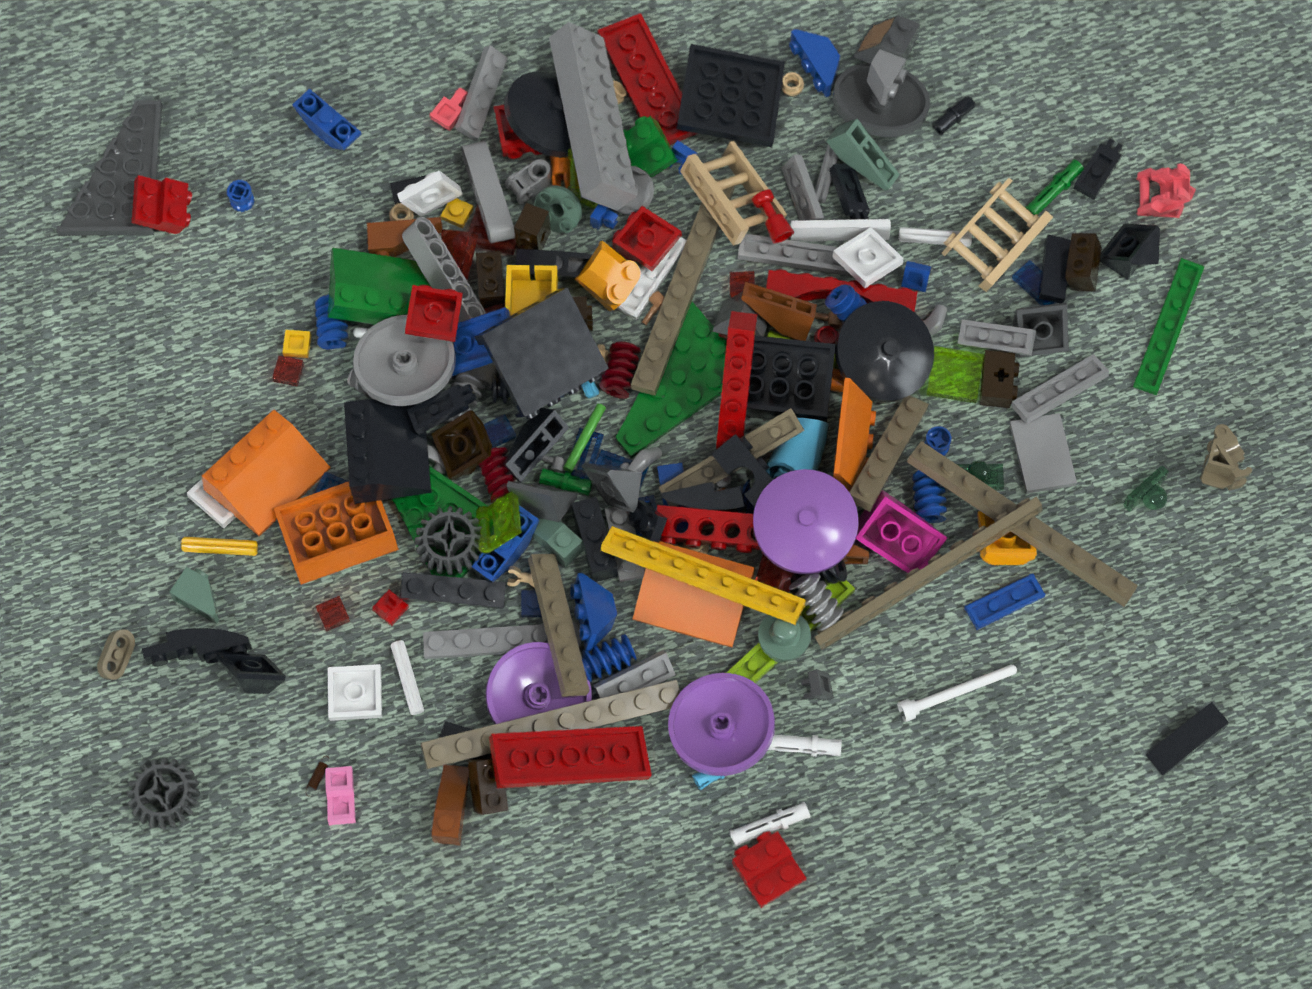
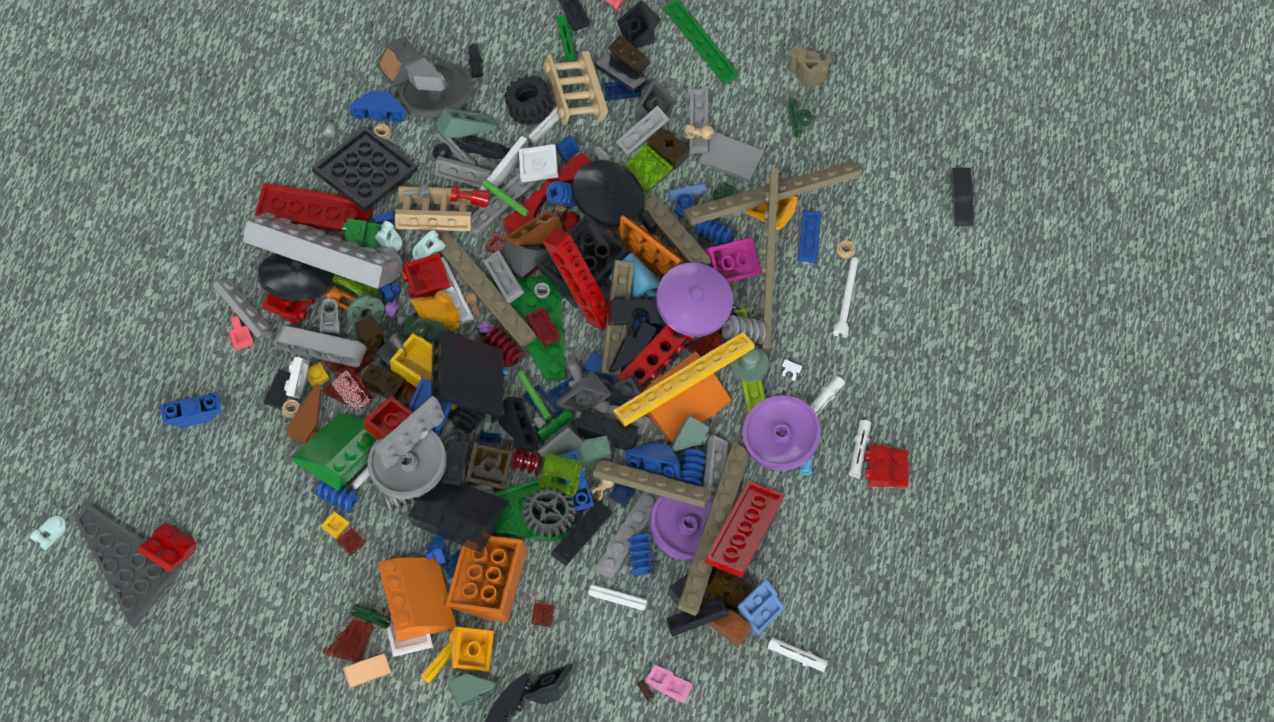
camera: 60 degrees left, 5 degrees down
(119, 89) = (54, 526): none -> light aqua plate
(153, 481) = (367, 670): none -> light nougat slope
(176, 445) = (351, 642): none -> clear red wing
(215, 443) = (371, 616): none -> dark green pin
(240, 201) = (201, 500): blue wheel -> none
(241, 565) = (471, 648): none -> light orange slope
(334, 460) = (437, 550): none -> blue tile
(354, 692) = (606, 633): white plate -> none
(390, 607) = (562, 578): red tile -> none
(426, 336) = (409, 432): none -> light grey plate
(439, 265) = (348, 402): light grey beam -> none
(439, 779) = (707, 613): none -> black tile
(468, 668) = (640, 554): none -> blue piece
(470, 942) = (797, 654): none -> white pin
(489, 834) = (761, 607): none -> medium blue slope
(571, 271) = (422, 327): none -> clear green tile
(585, 231) = (391, 308): none -> medium lavender plate
(631, 337) = (485, 327): none -> medium lavender plate
(650, 628) = (690, 434): none -> sand green slope
(664, 178) = (389, 237): none -> light aqua plate
(669, 393) = (543, 327): none -> dark red plate
(678, 215) = (423, 249): none -> light aqua plate
(702, 314) = (503, 276): none -> light grey plate
(708, 366) = (542, 287): none -> light grey hinge
(741, 168) = (422, 192): none -> light grey hand
(755, 32) = (329, 130): none -> light grey hinge
(797, 253) = (507, 199): none -> bright green bar
(810, 151) = (441, 147): none -> black plate
(886, 417) = (648, 222): none -> black tile
(942, 212) = (525, 89): none -> black tyre
(960, 435) = (693, 190): none -> medium blue pin
(1021, 644) = (846, 244): none -> tan plate
(1043, 403) = (705, 132): none -> tan arm

